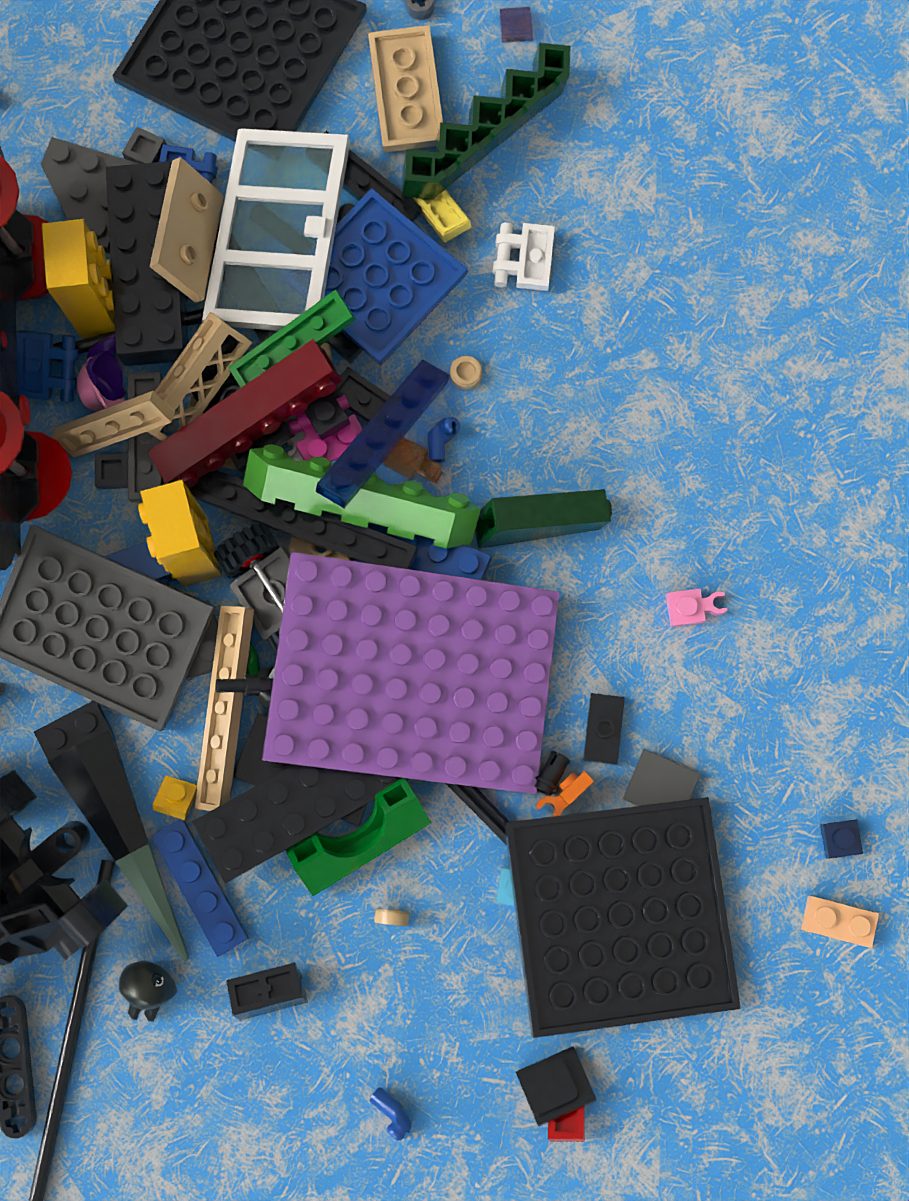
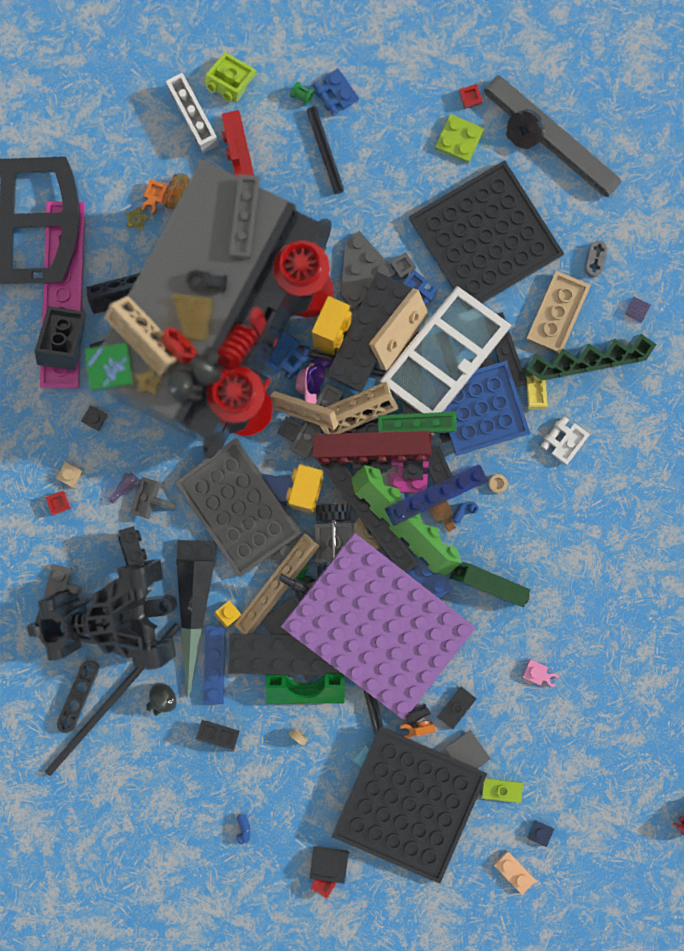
camera: 30 degrees right, 5 degrees up
(745, 810) = (502, 790): none -> lime plate

